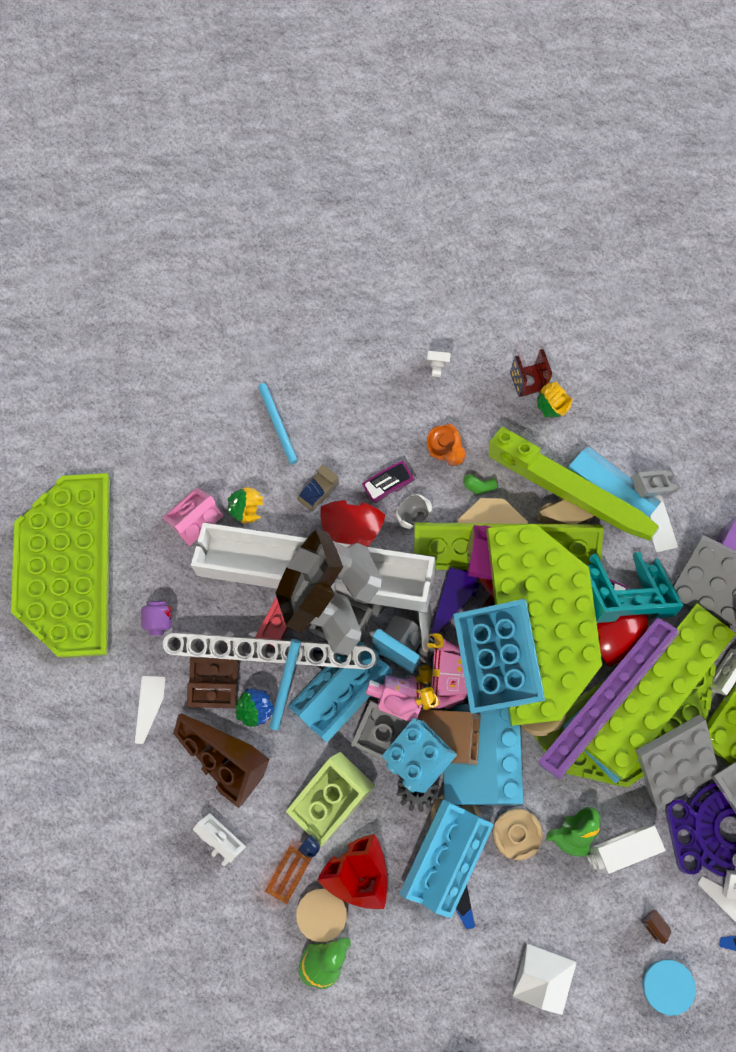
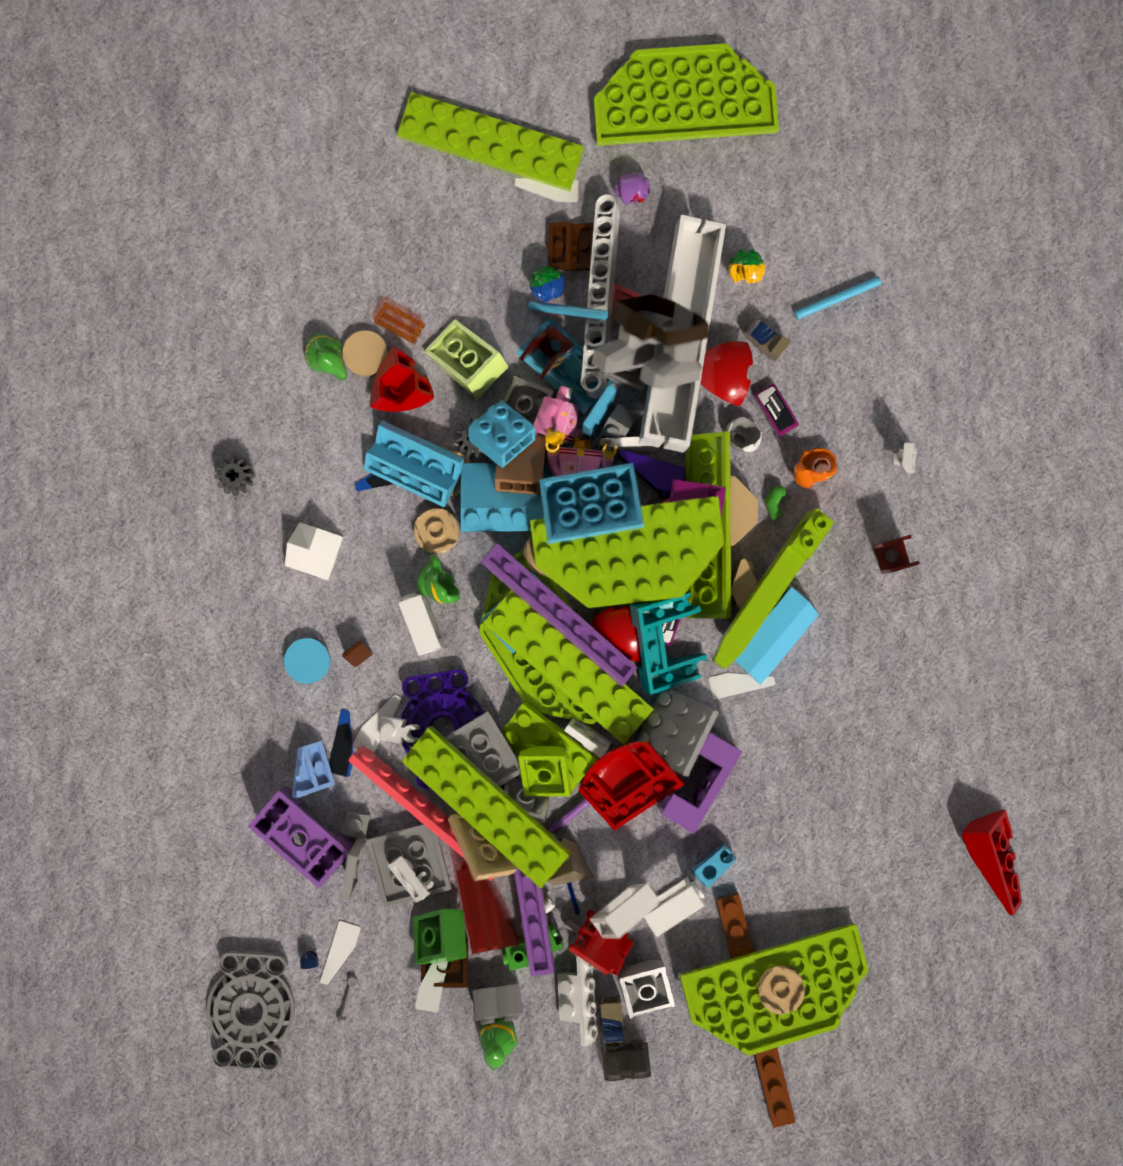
camera: 90 degrees right, 15 degrees up
(92, 772) = (490, 141): none -> lime plate
(191, 513) = (737, 214): bright pink bracket -> none
(220, 838) = (430, 258): white plate -> none
(230, 761) = (499, 265): reddish brown wedge -> none
(310, 847) = (422, 340): dark blue hinge -> none
(332, 695) = (542, 342): none -> clear red piece
(553, 400) = (866, 578): yellow piece -> none
(654, 483) = (776, 674): light grey hinge -> none
(678, 761) = (500, 677): light grey plate -> none

